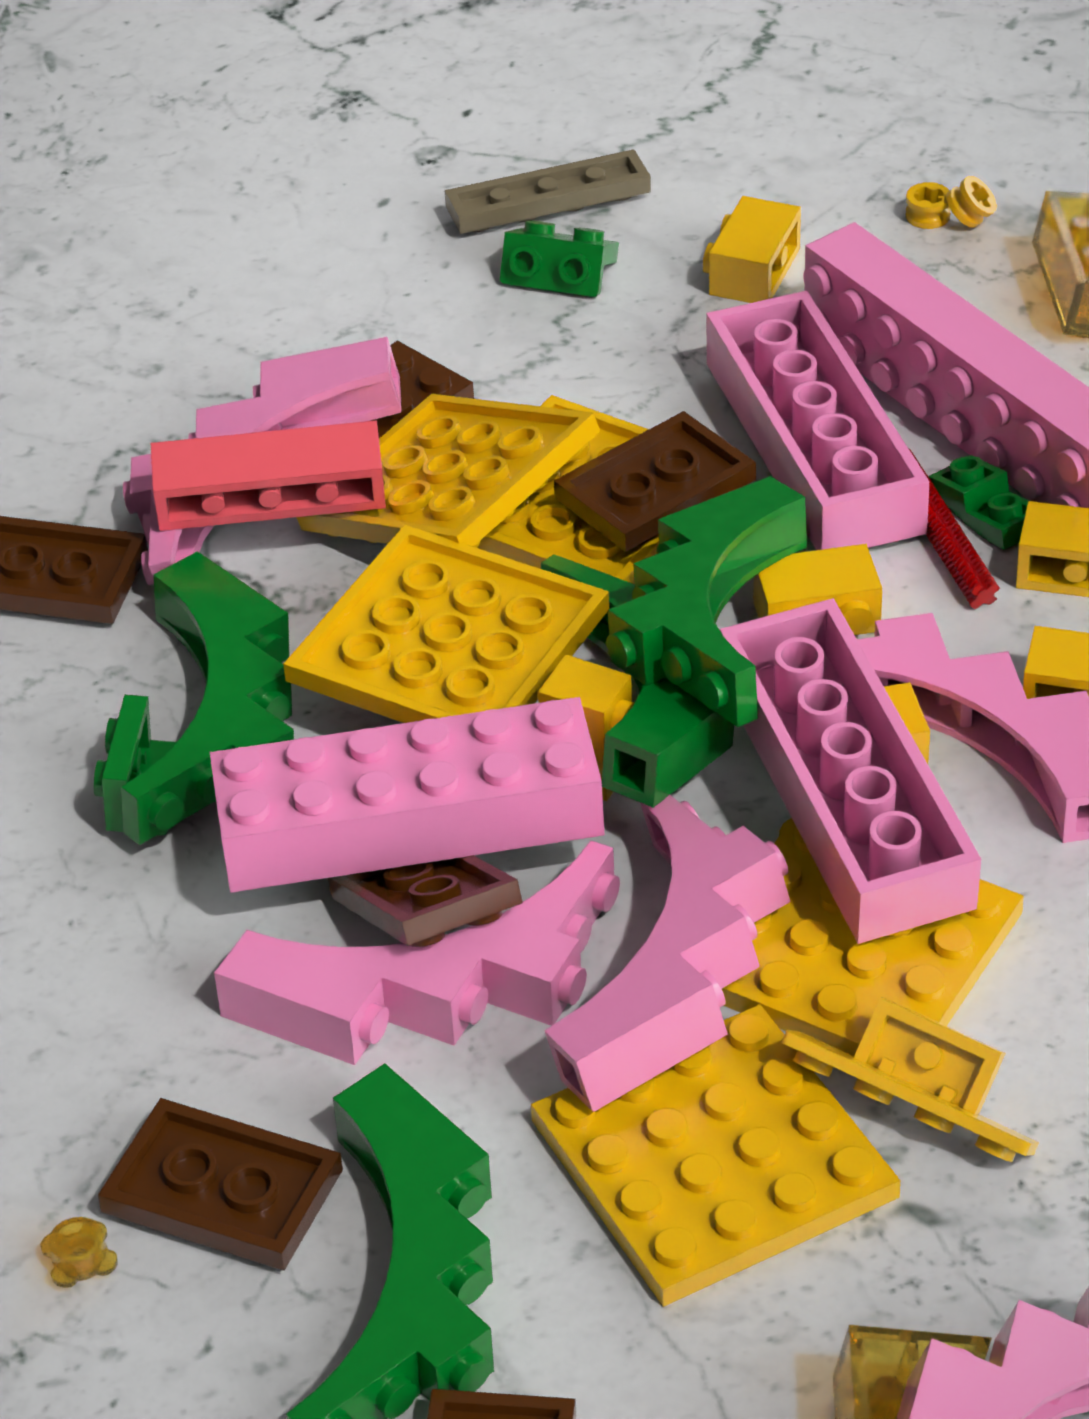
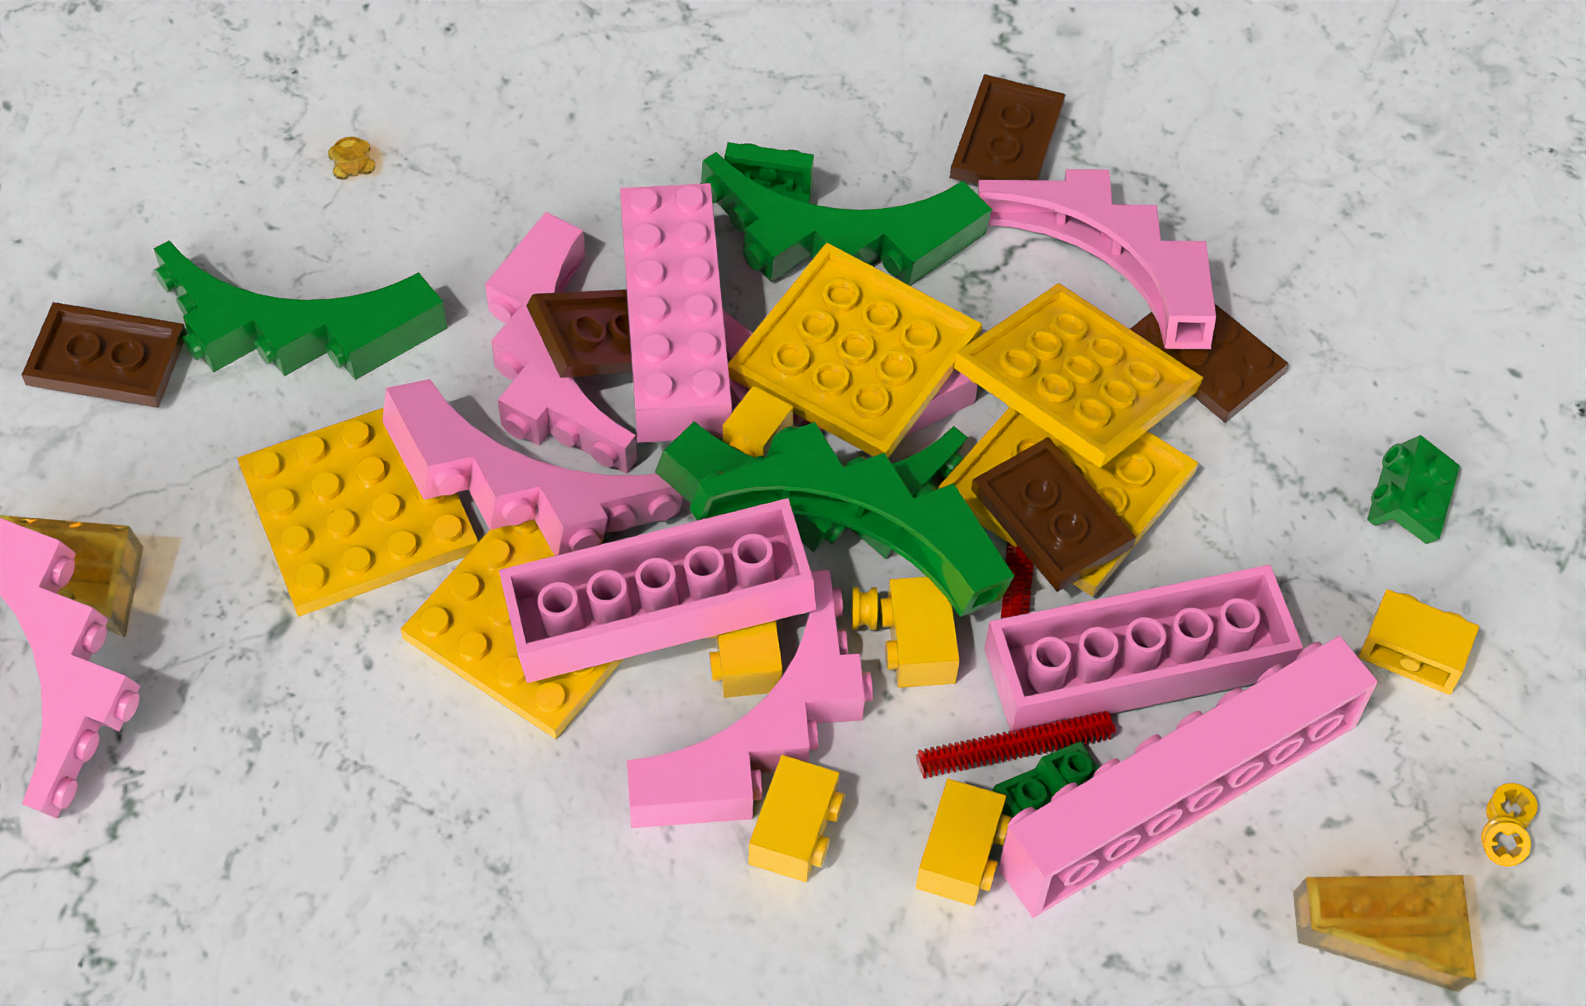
camera: 90 degrees right, 15 degrees up
(221, 1183) = (385, 227): reddish brown plate -> none
(267, 475) = (1049, 239): coral brick -> none
(547, 191) = (1517, 489): dark tan plate -> none
(924, 1065) = (368, 622): yellow bracket -> none

